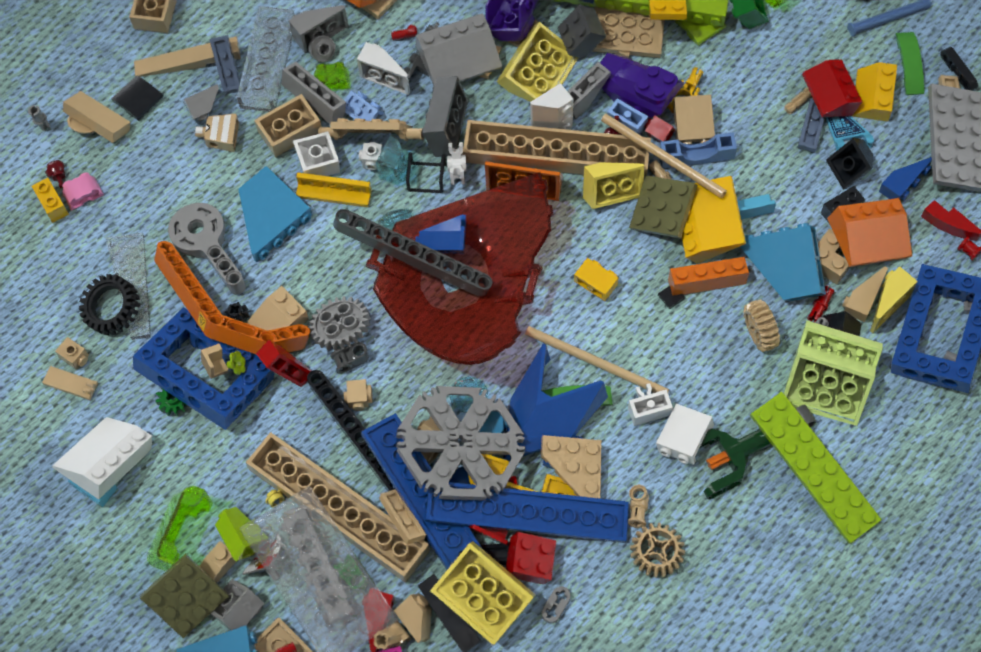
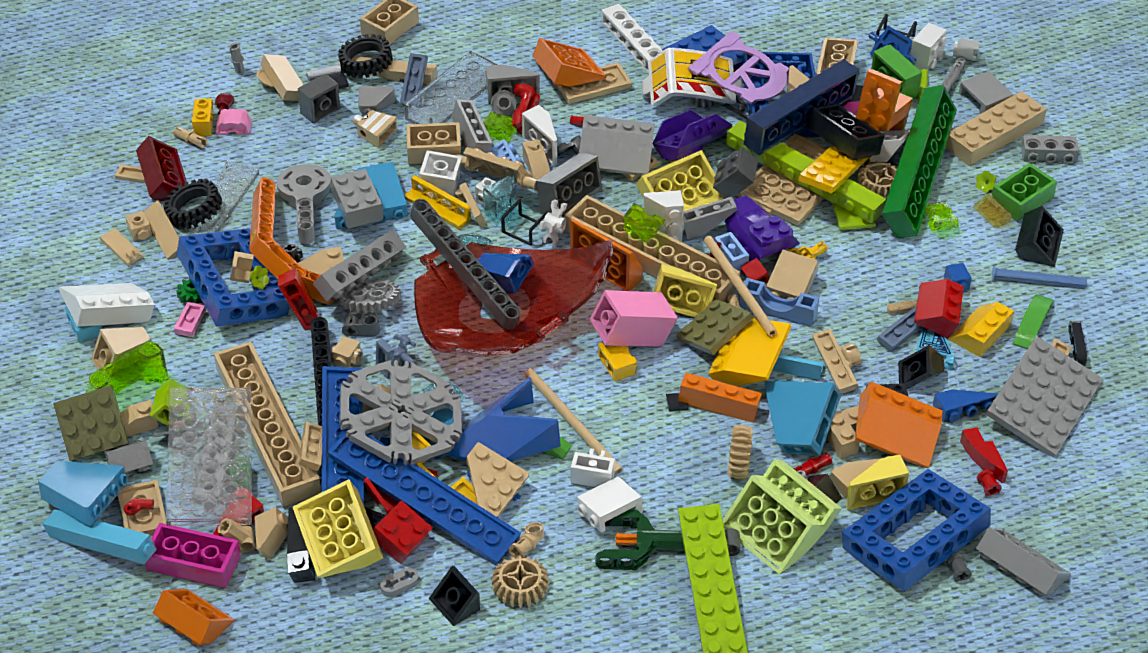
camera: 25 degrees right, 20 degrees down
(25, 294) = (130, 173): none -> tan tile
(50, 278) = (160, 168): none -> dark red slope
(51, 227) = (190, 137): none -> tan pin
(98, 345) = (162, 229): none -> tan slope
(149, 127) = (319, 98): none -> dark grey brick
(149, 498) = (116, 343): none -> tan slope
(165, 73) = (369, 66): none -> black tyre
(190, 430) = (189, 319): none -> bright pink plate
(264, 227) = (357, 198): none -> light grey brick
(315, 299) = (359, 266): none -> light grey brick
(345, 34) = (528, 100): none -> red piece
(350, 166) = (464, 193): none -> tan hinge
(396, 103) = (535, 158): none -> tan slope
(400, 382) = (385, 352): none -> sand blue piece
(542, 131) = (641, 224): none -> clear neon green cylinder
(593, 236) = (633, 318): none -> bright pink brick
(614, 596) = (455, 597): none -> black slope
(779, 185) = (838, 359): none -> tan plate
(826, 48) = (959, 274): none -> blue brick

